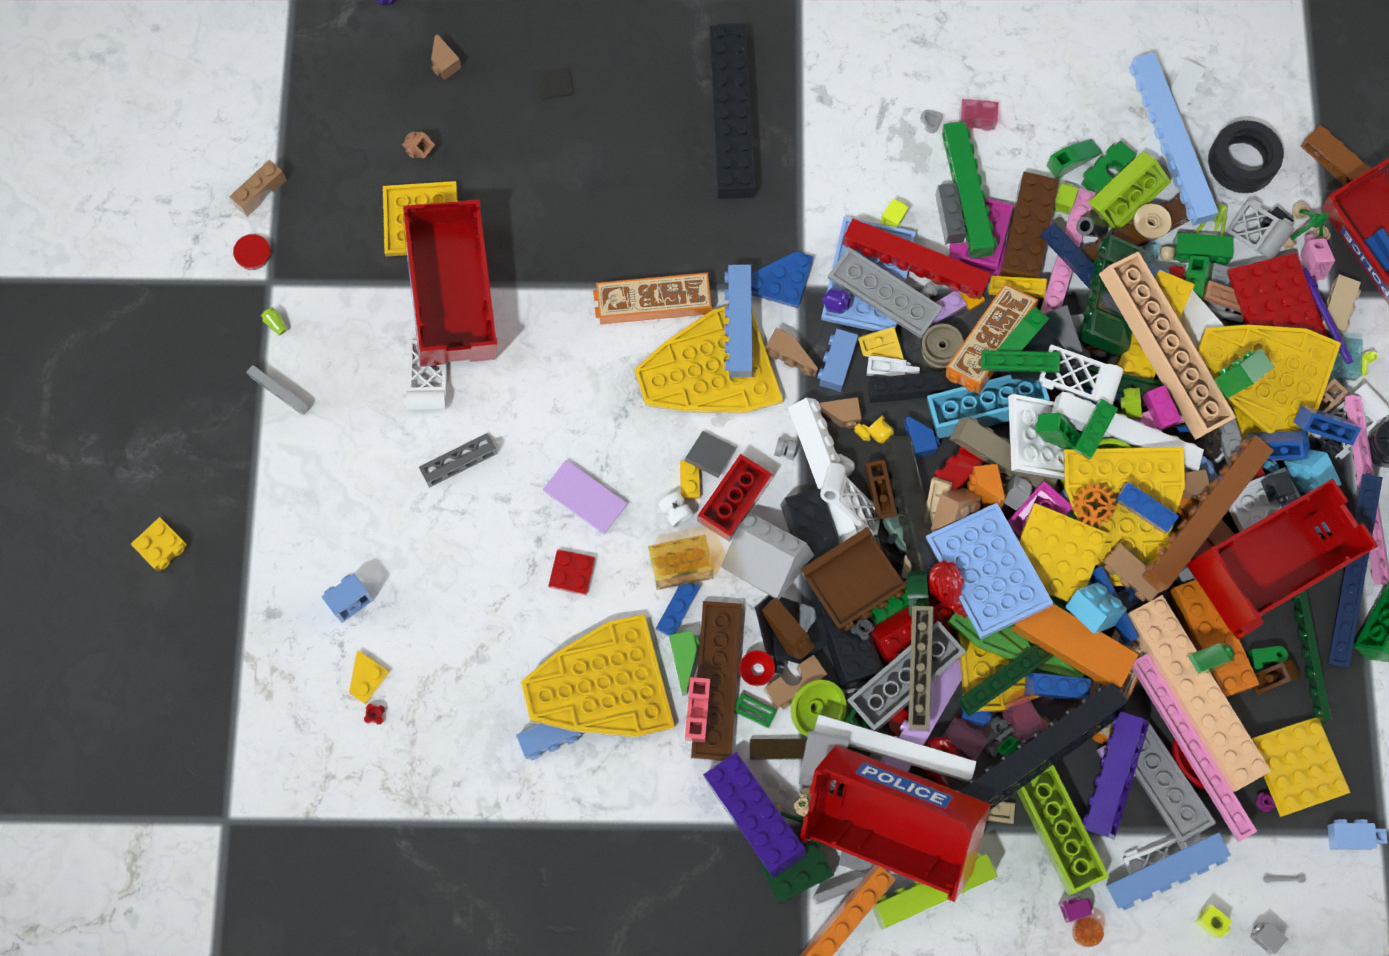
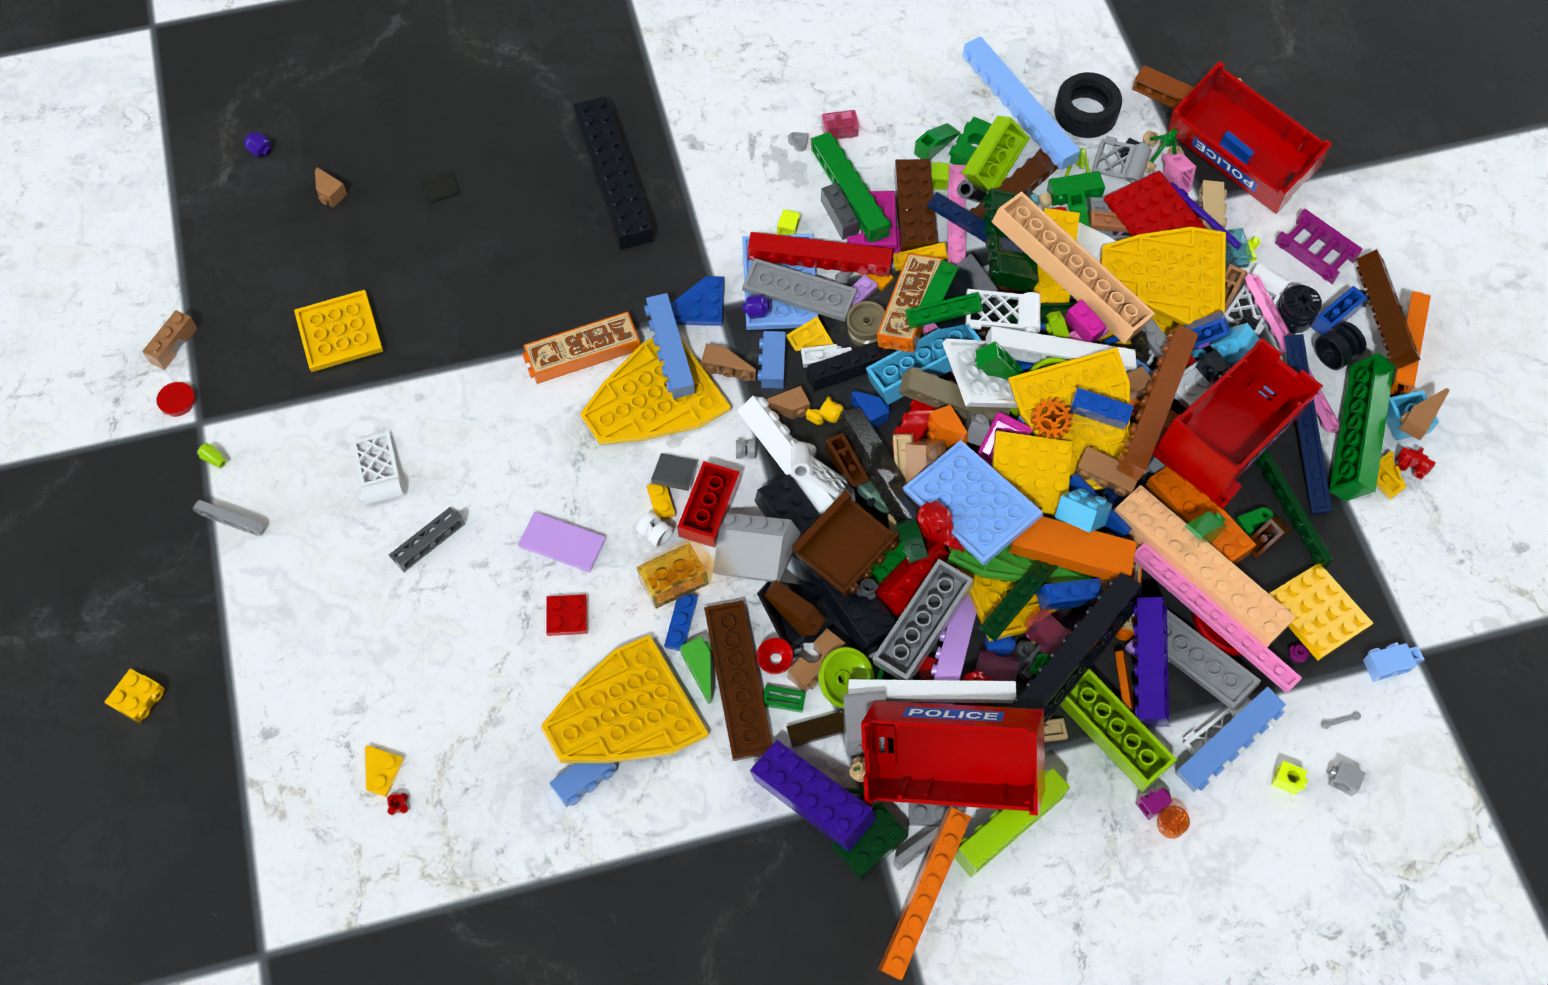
camera: 15 degrees left, 10 degrees down
(347, 597) = (343, 694): medium blue brick -> none
(418, 144) = (320, 266): nougat brick -> none
(449, 282) = (379, 374): red piece -> none
(697, 709) = (727, 708): coral arch -> none
(920, 668) = (936, 605): dark tan brick -> none
(1085, 785) = (1124, 680): none -> orange tile
(1095, 429) = (1031, 351): green plate -> none
(1157, 215) = (1024, 172): tan dish -> none
(1243, 372) = (1149, 271): green brick -> none
(1327, 425) = (1238, 302): blue brick -> none

